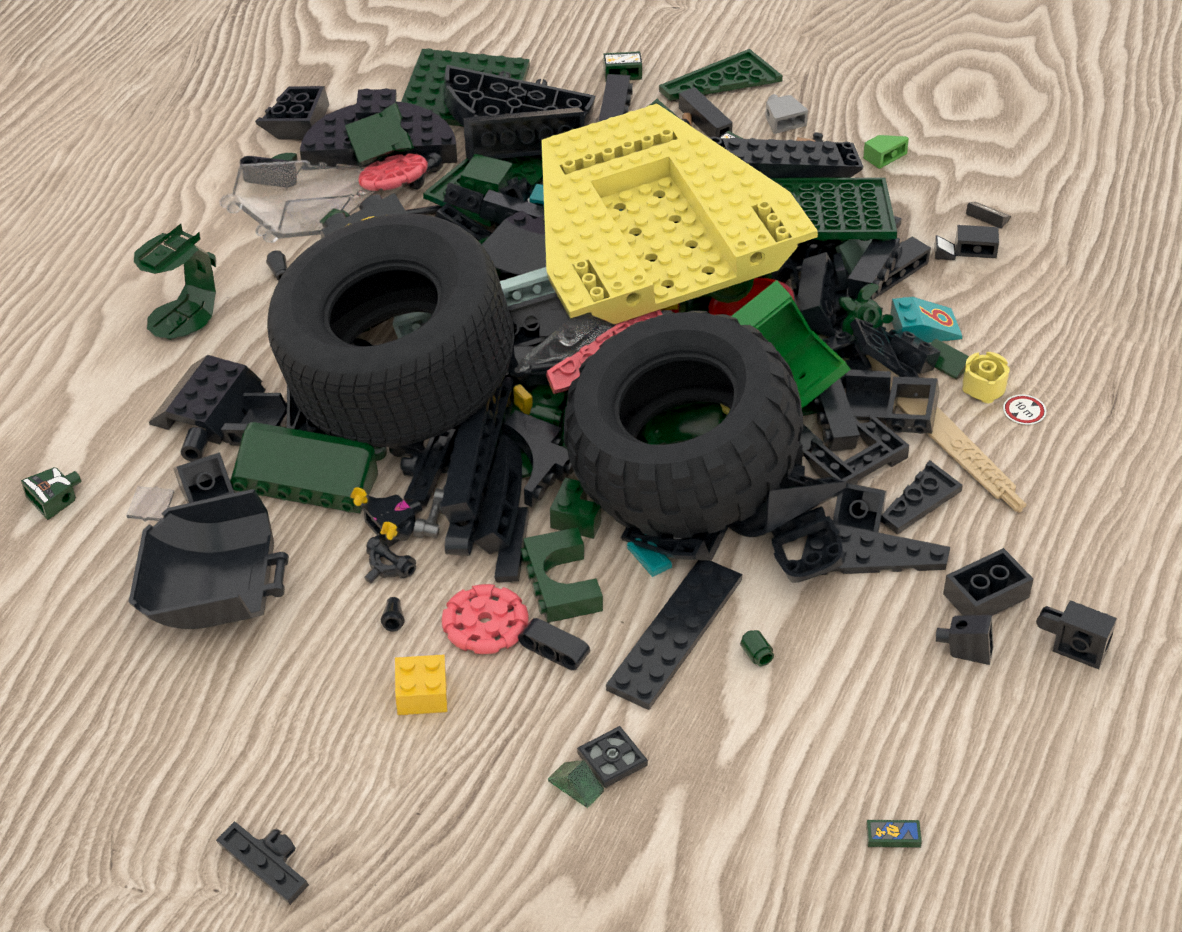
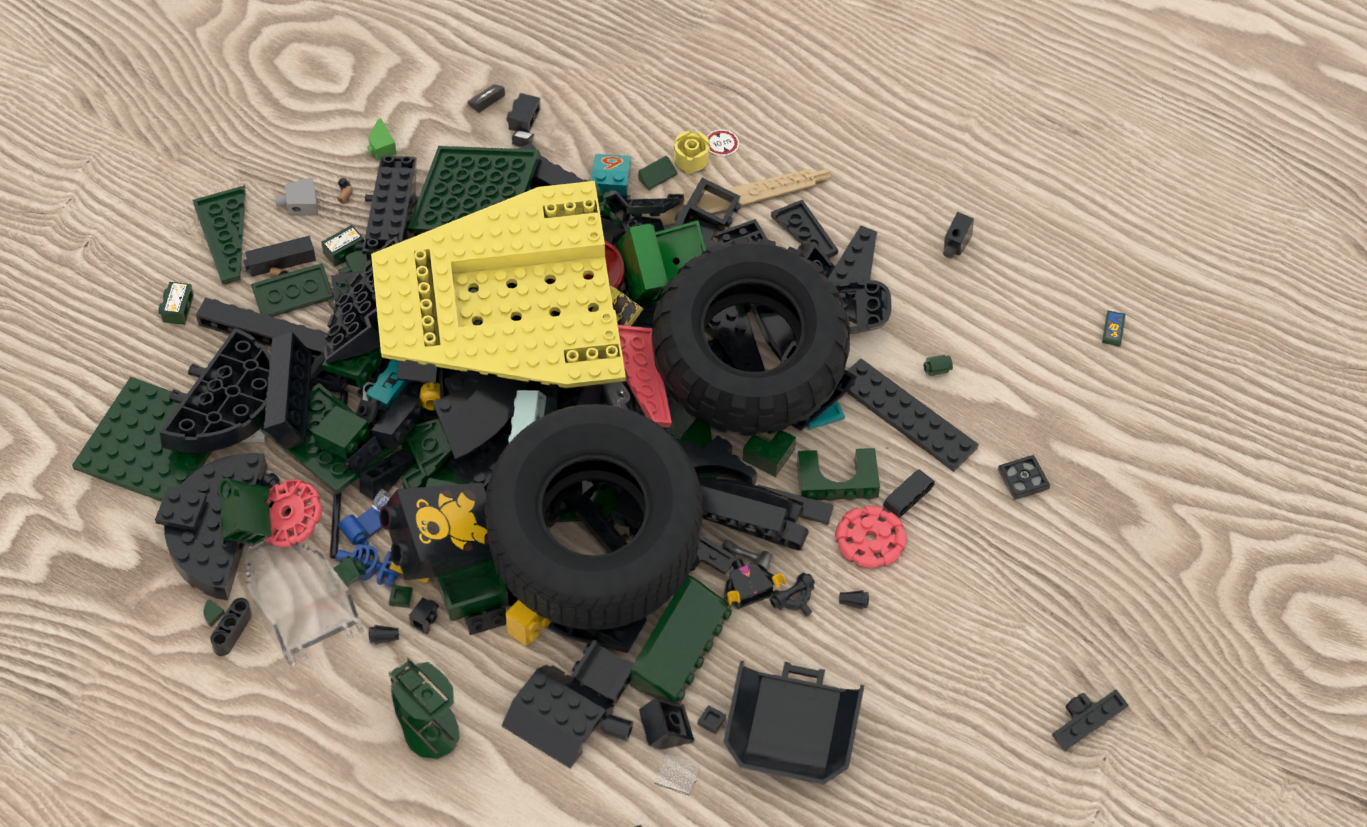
camera: 80 degrees left, 10 degrees up
(295, 112) = (148, 586): black wedge -> none
(420, 684) = (936, 588): yellow brick -> none
(577, 781) = (1041, 505): clear green slope -> none
(864, 309) = (615, 200): none -> black slope
(914, 352) = (650, 187): black brick -> none
(988, 585) = (911, 212): black brick -> none
(1079, 631) = (968, 171): black brick -> none

